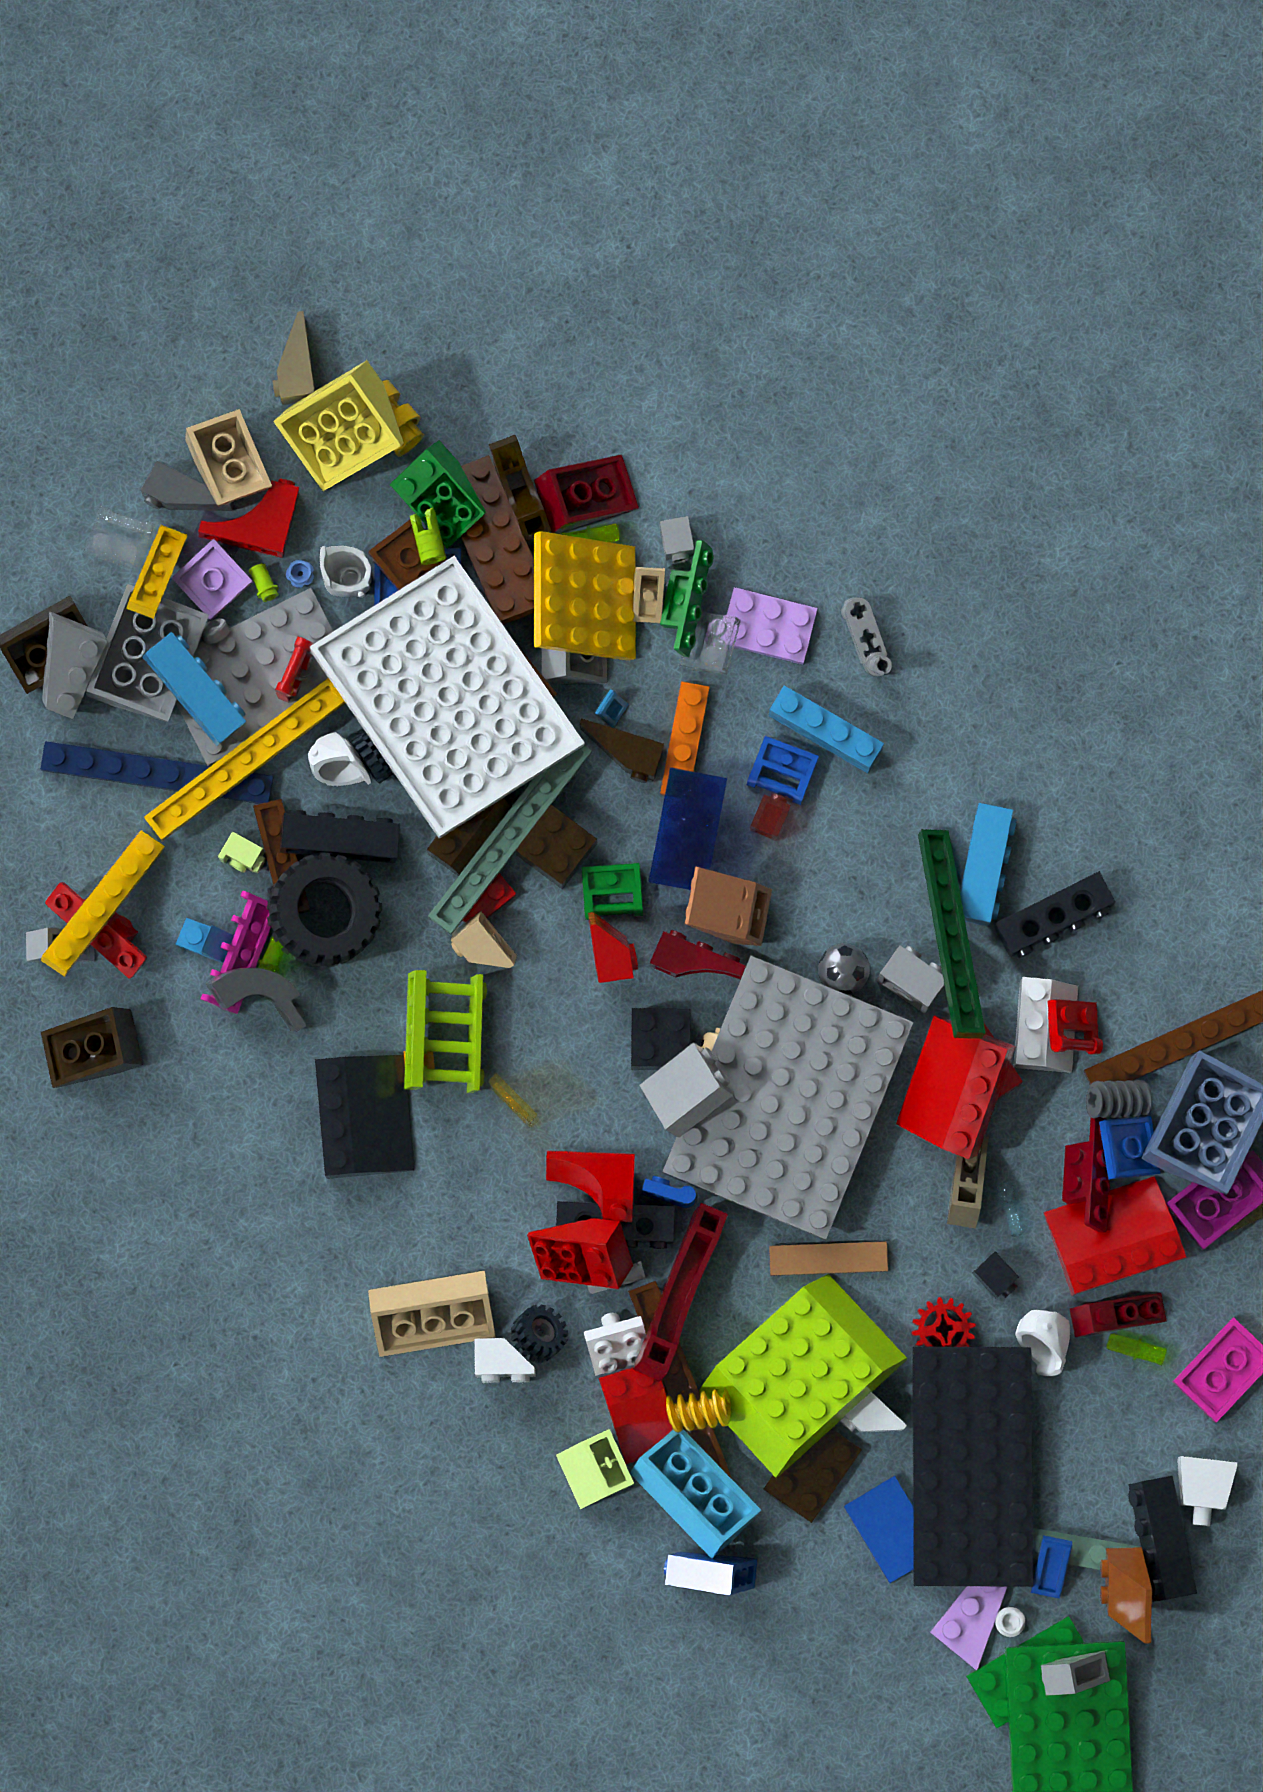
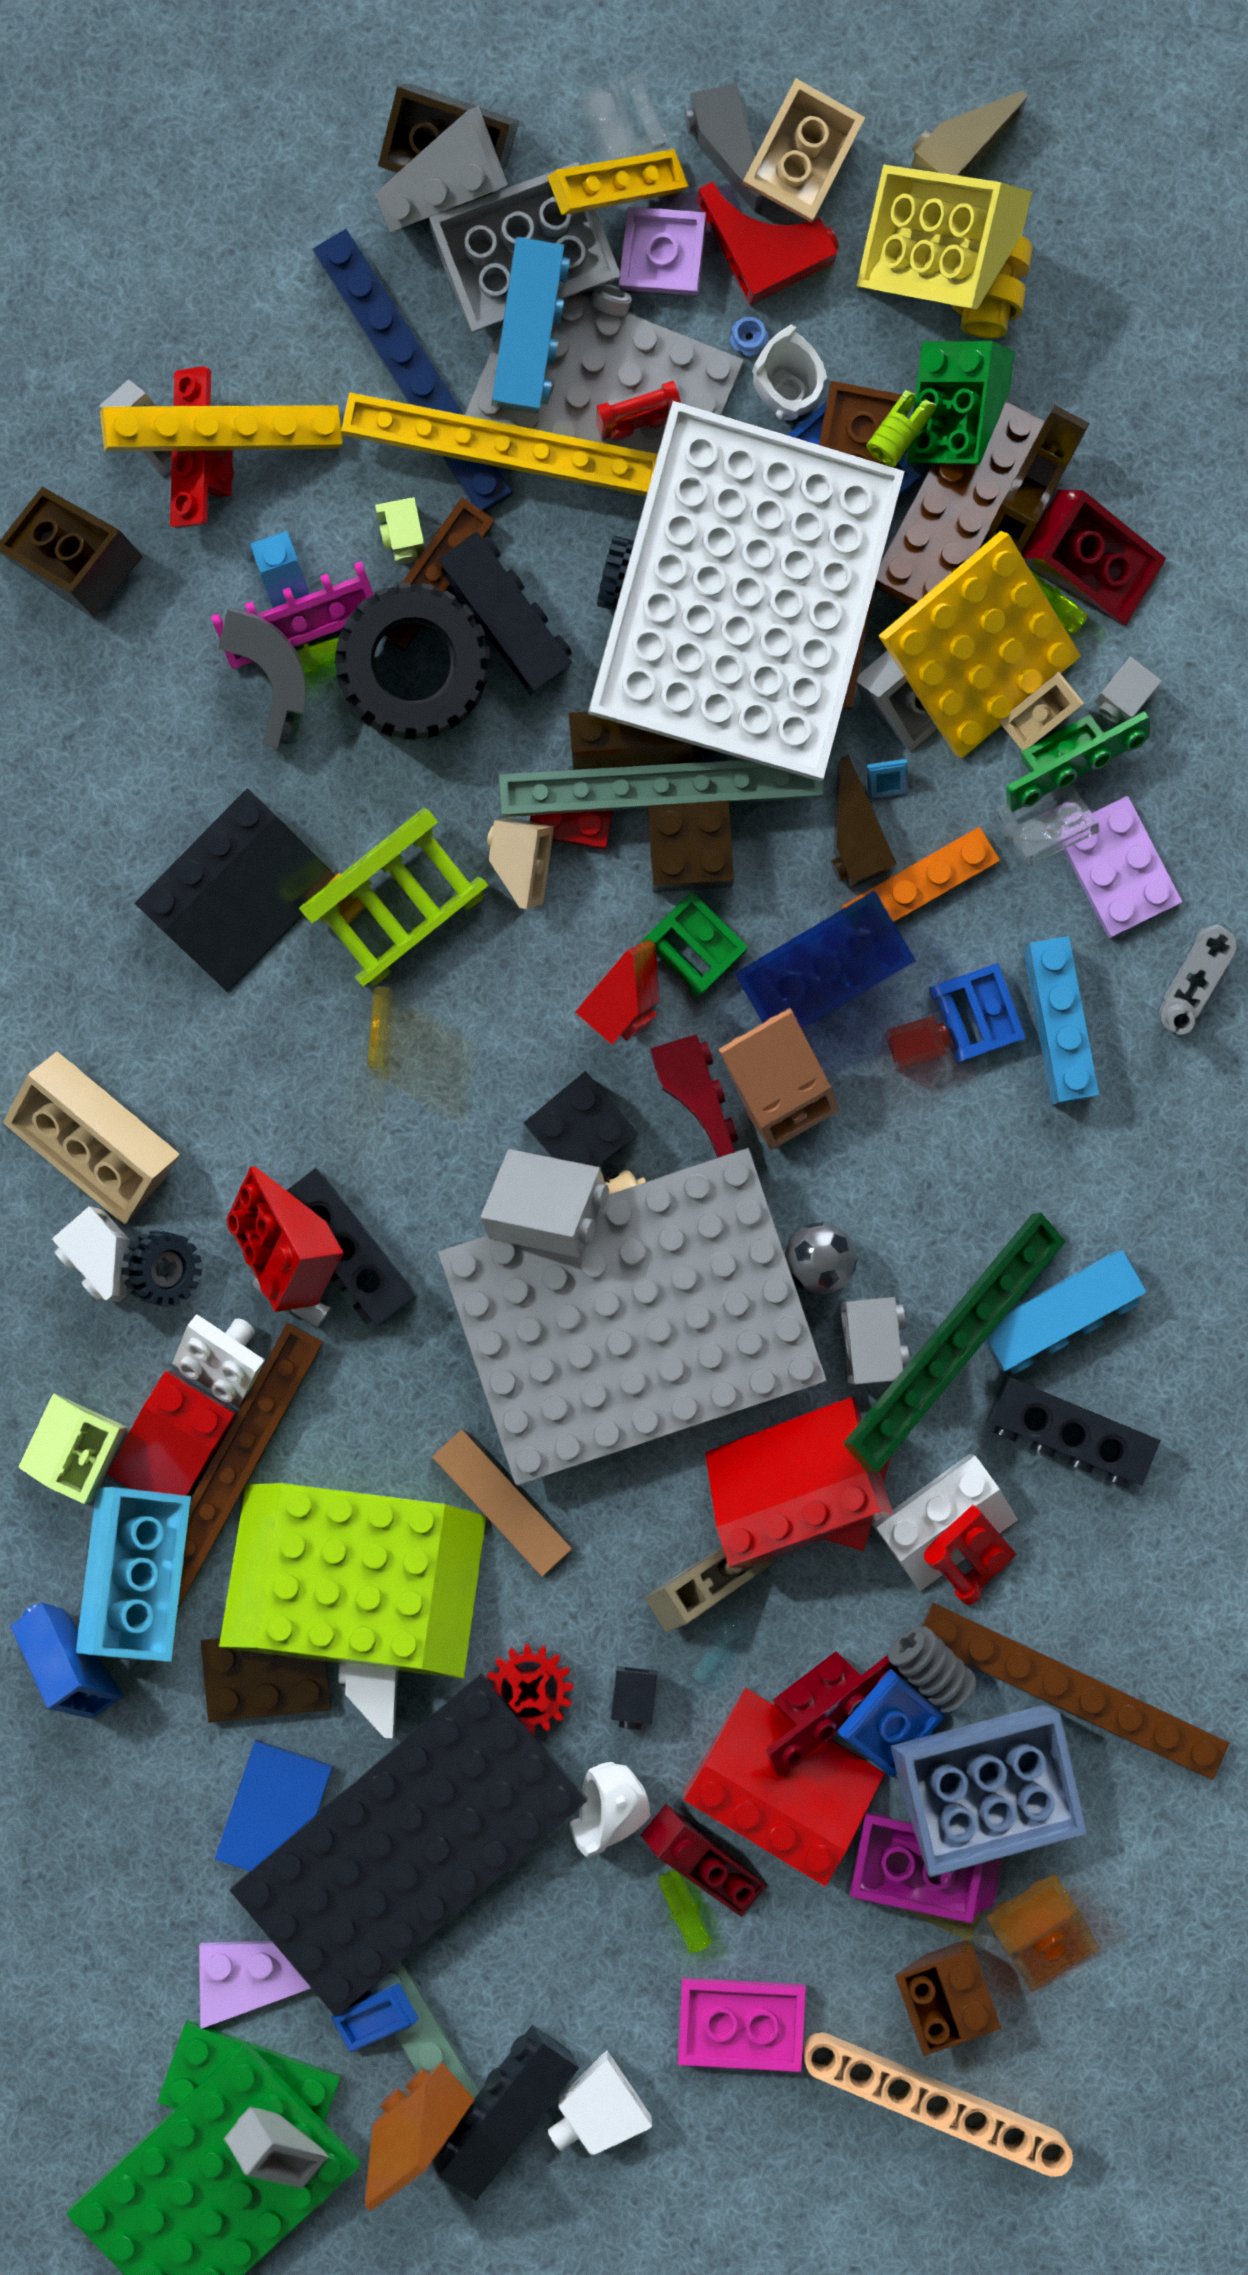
camera: 45 degrees right, 5 degrees up
(263, 582) = (702, 315): lime pin -> none
(336, 761) = (581, 541): white helmet -> none
(600, 1175) = (384, 1192): red arch -> none
(659, 1189) = (419, 1266): blue plate -> none
(679, 1291) = (325, 1378): dark red arch -> none
(699, 1411) = (216, 1508): yellow piece -> none
(1010, 1621) = (281, 2020): white plate -> none

